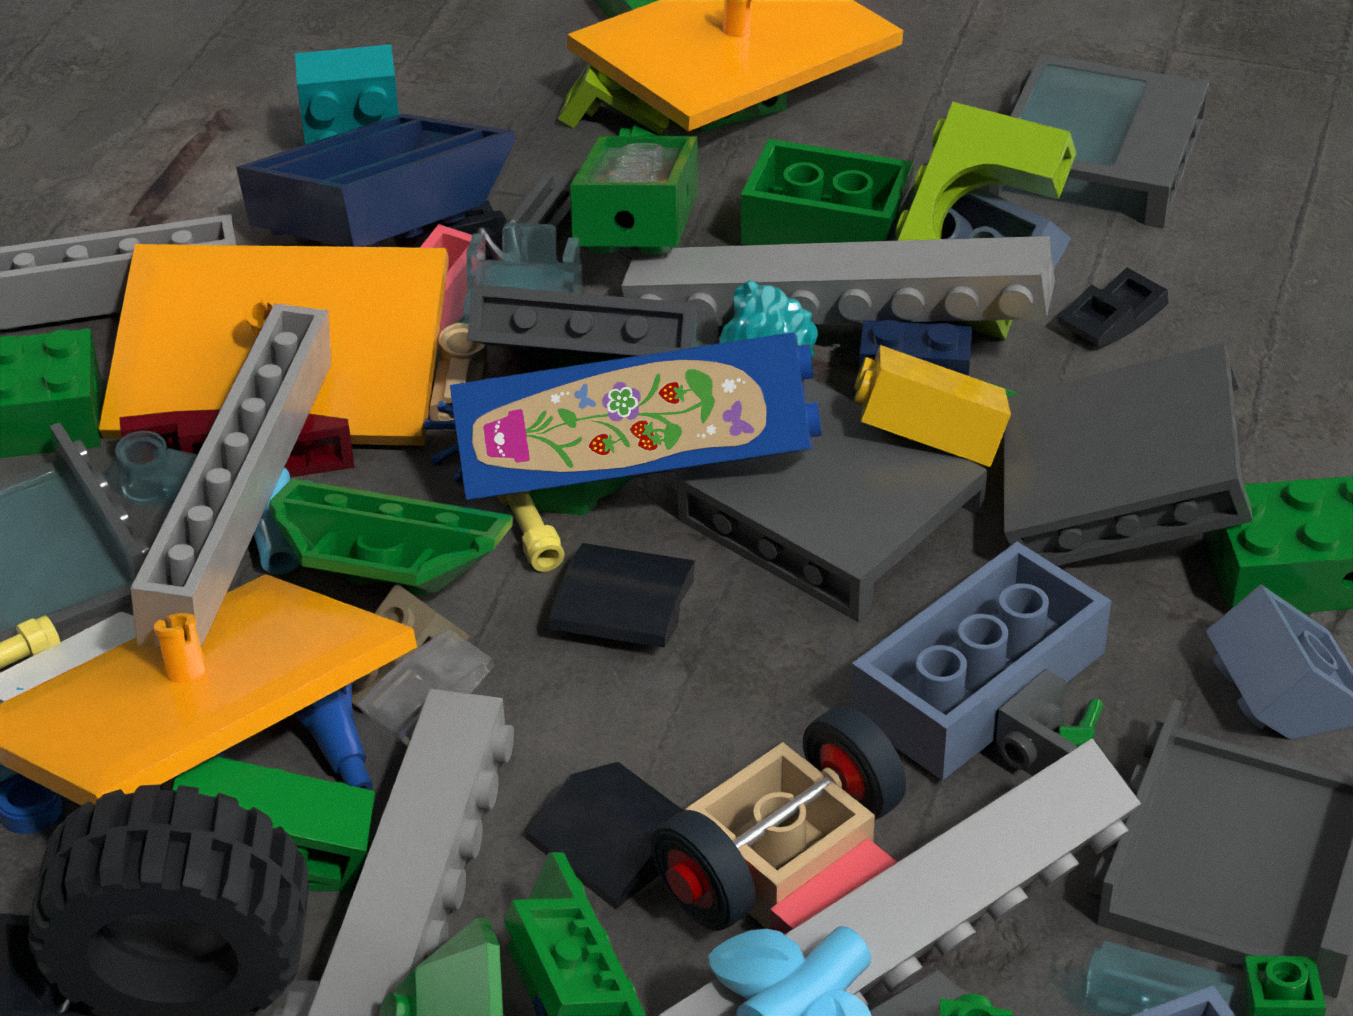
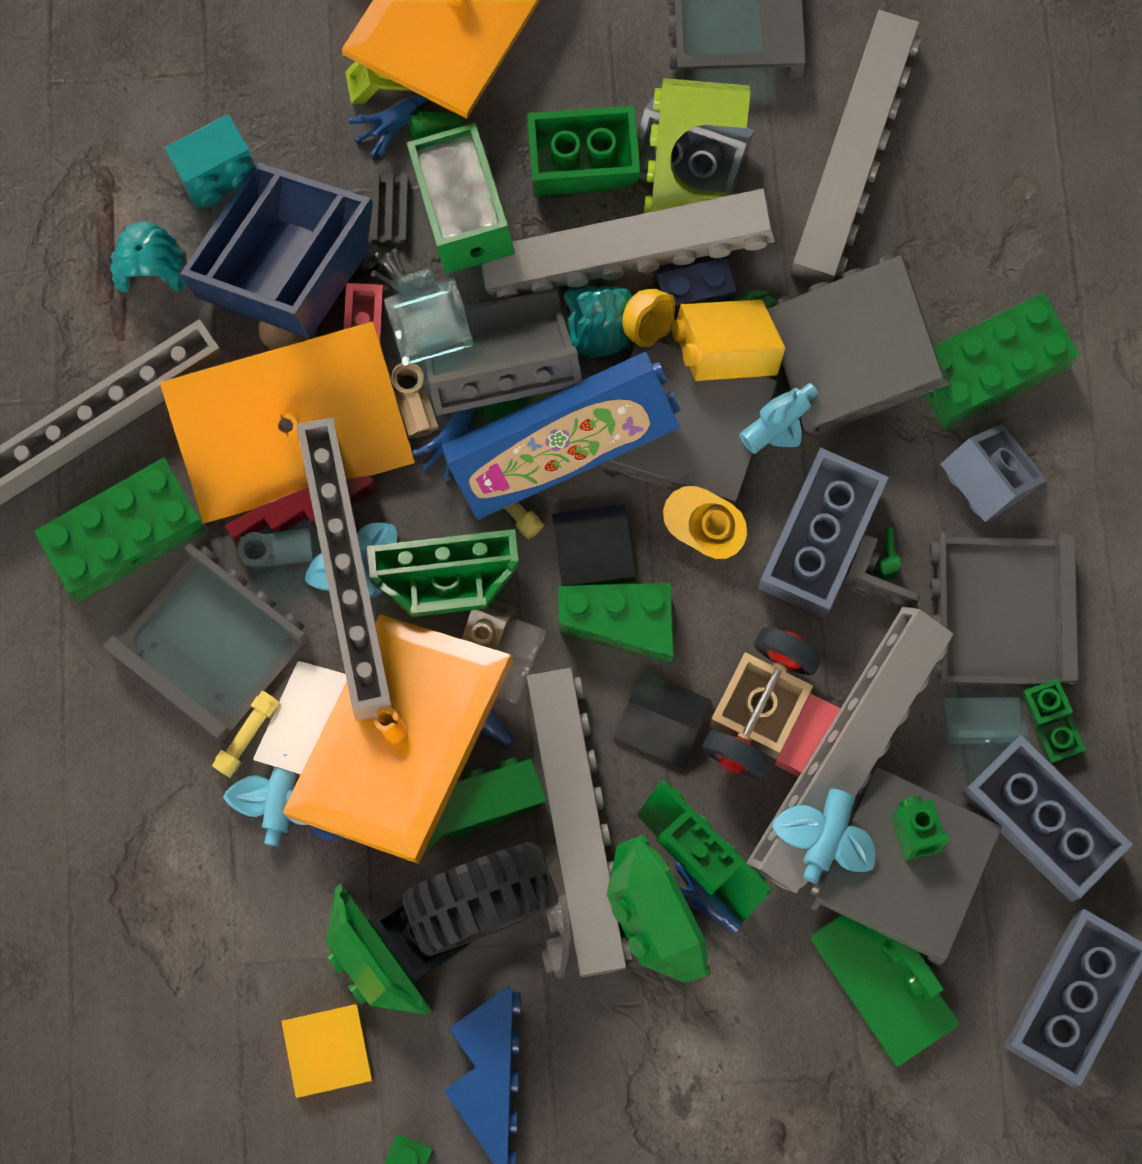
camera: 20 degrees left, 35 degrees up
(205, 153) = (147, 251): none -> teal hair
(585, 133) = (389, 122): none -> blue piece
(616, 671) = (621, 616): none -> green wedge
(803, 594) = (705, 522): none -> yellow piece
(848, 339) = (648, 317): none -> yellow helmet
(969, 497) = (779, 420): none -> medium azure plant
(1115, 310) = (798, 181): black slope -> none
(1220, 275) = (855, 147): none -> light grey brick

